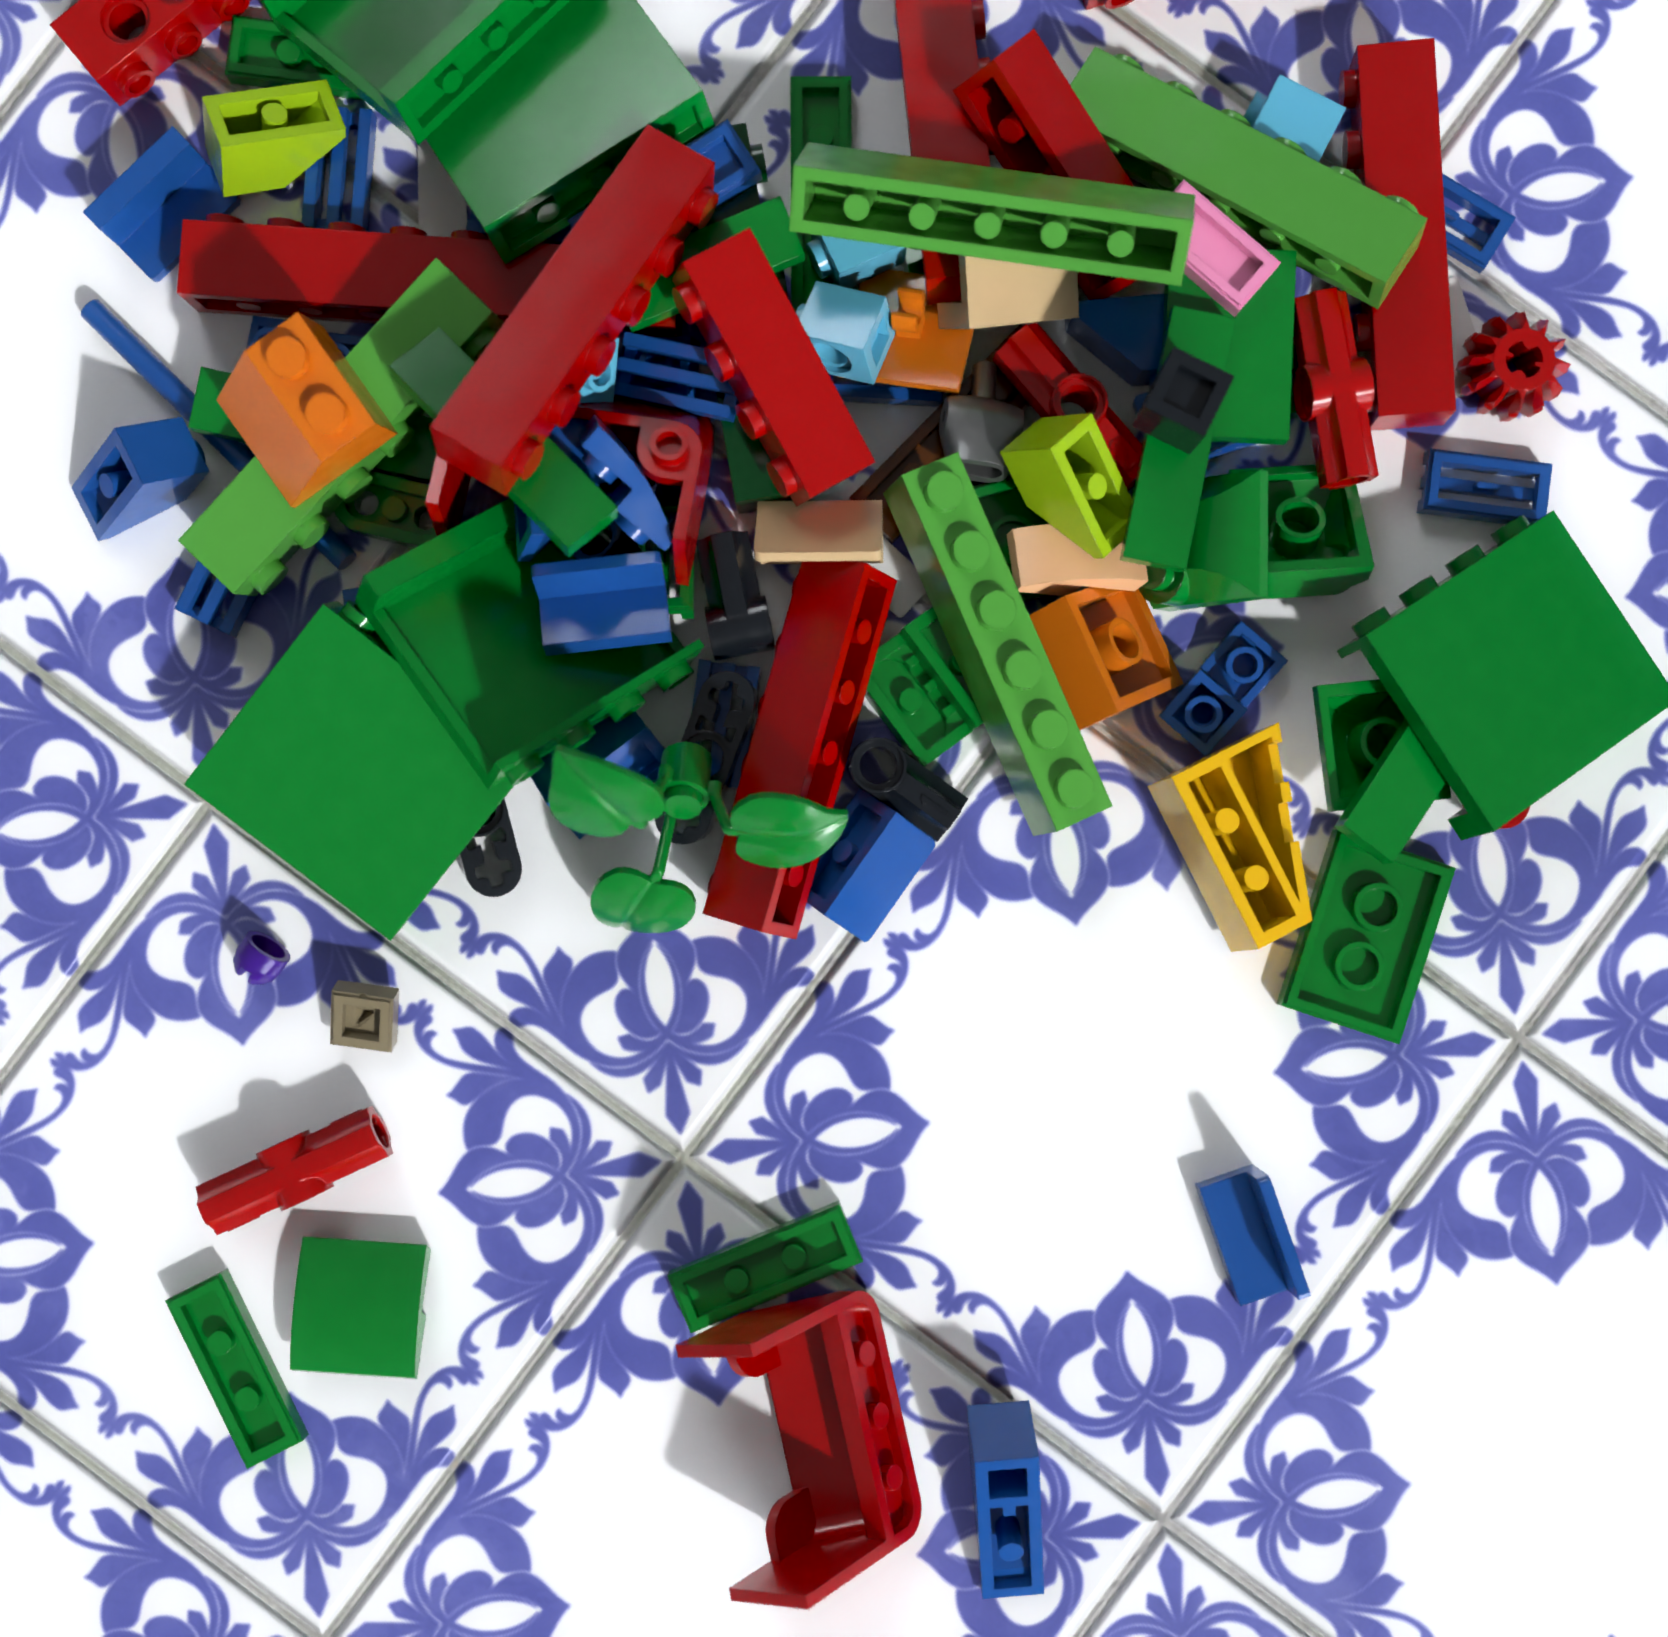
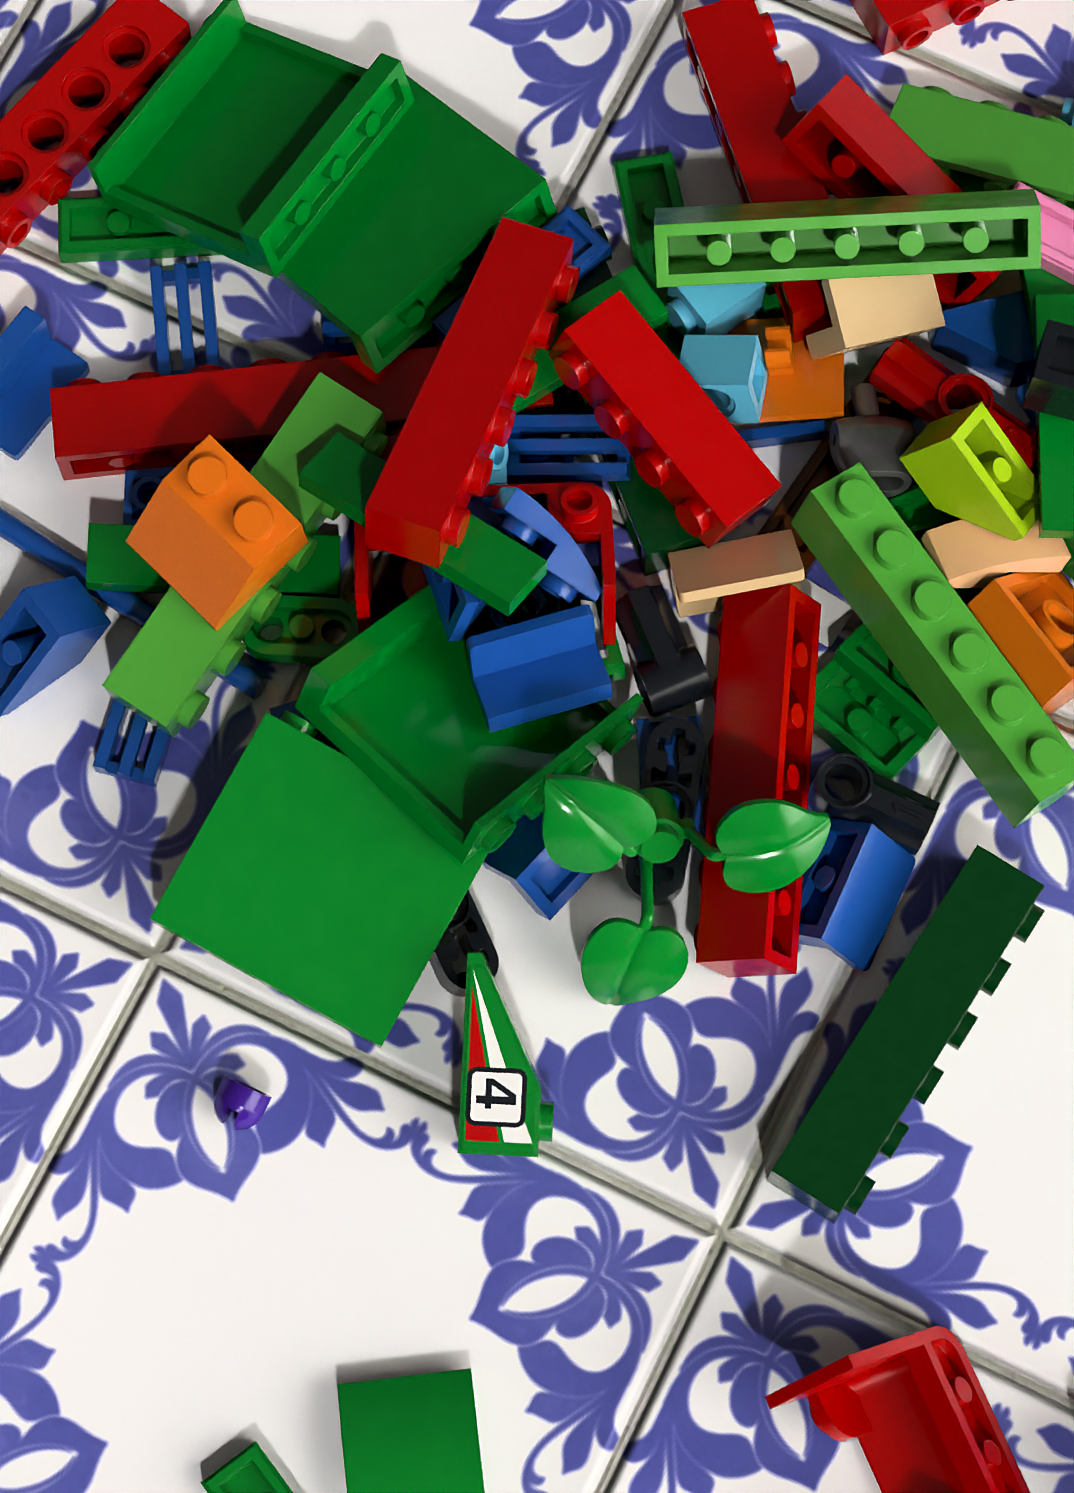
camera: 15 degrees left, 15 degrees down
(269, 134) = (117, 299): lime slope -> none
(294, 1170) = (317, 1313): red piece -> none
(364, 1016) = (361, 1140): dark tan tile -> none
(439, 201) = (286, 321): white sticker -> none
(497, 985) = (498, 1082): none -> slope
(765, 1266) = (835, 1323): green tile -> none
(888, 1015) = (906, 1034): none -> dark green brick

